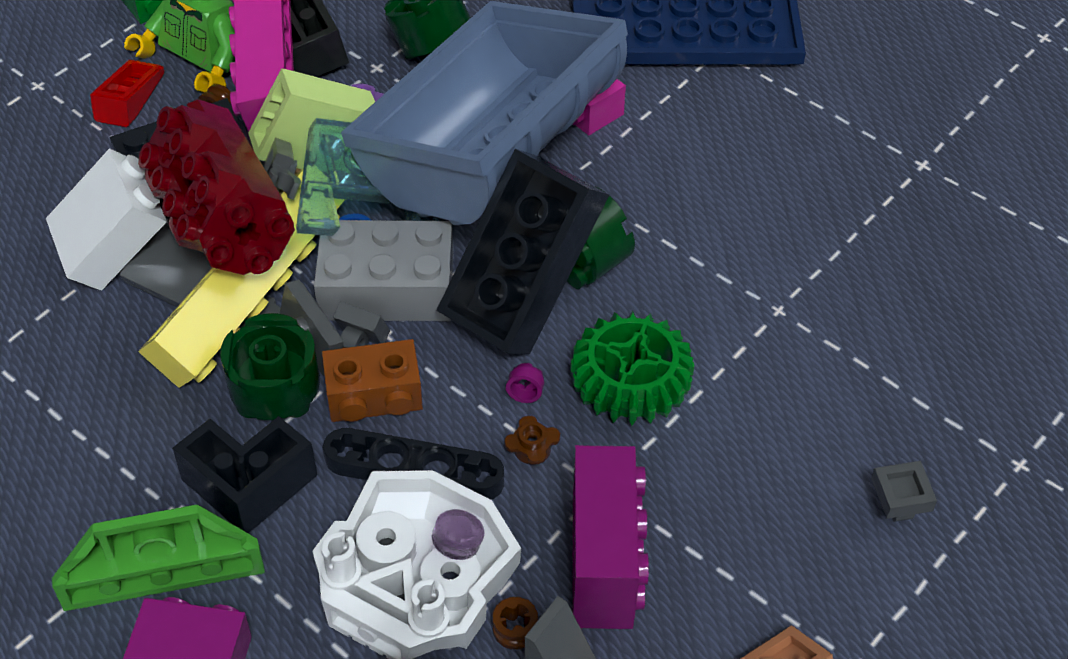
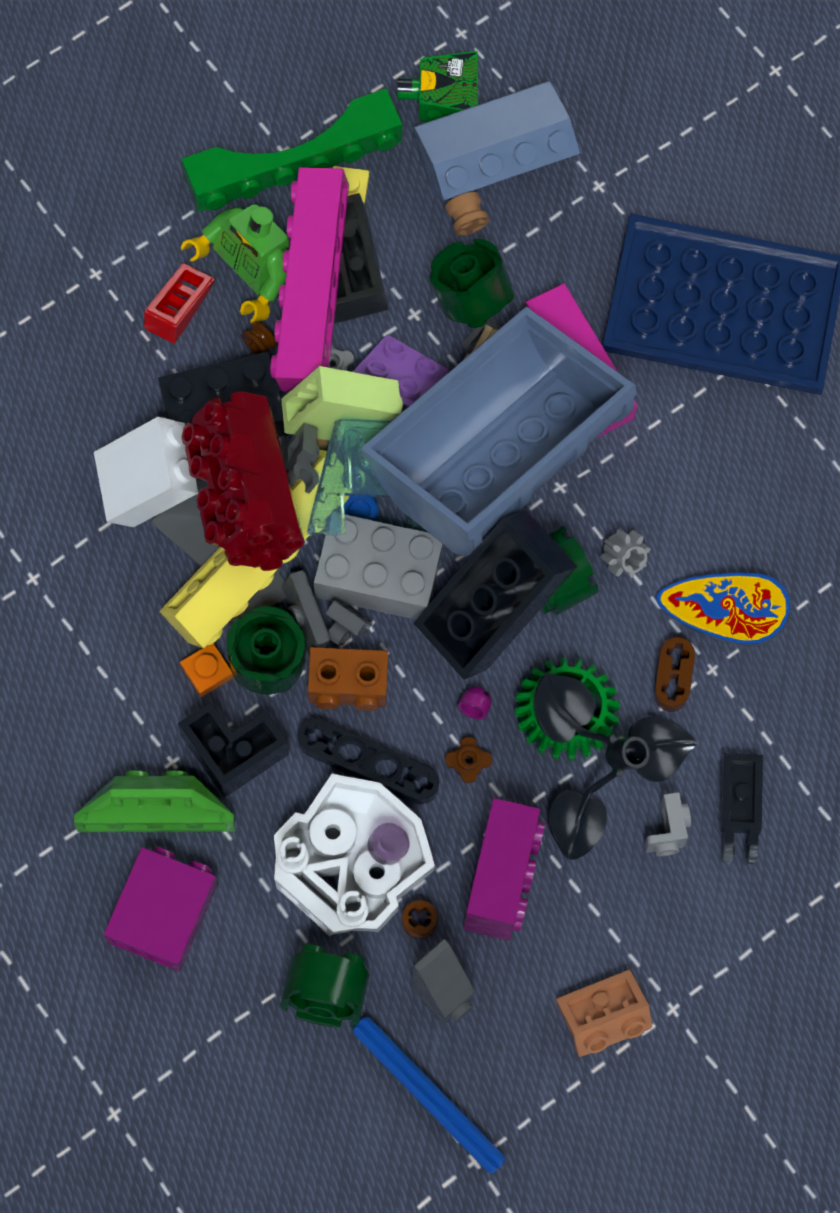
camera: 10 degrees right, 20 degrees up
(202, 403) = (206, 670): none -> orange plate
(652, 214) = (625, 553): none -> light grey gear
(747, 390) = (652, 749): none -> black plant
(748, 317) = (682, 675): none -> reddish brown beam
(779, 240) = (729, 606): none -> shield
(791, 458) = (675, 820): none -> light grey bracket
(858, 424) = (741, 803): none -> black hinge
(903, 490) = (754, 874): dark grey tile -> none

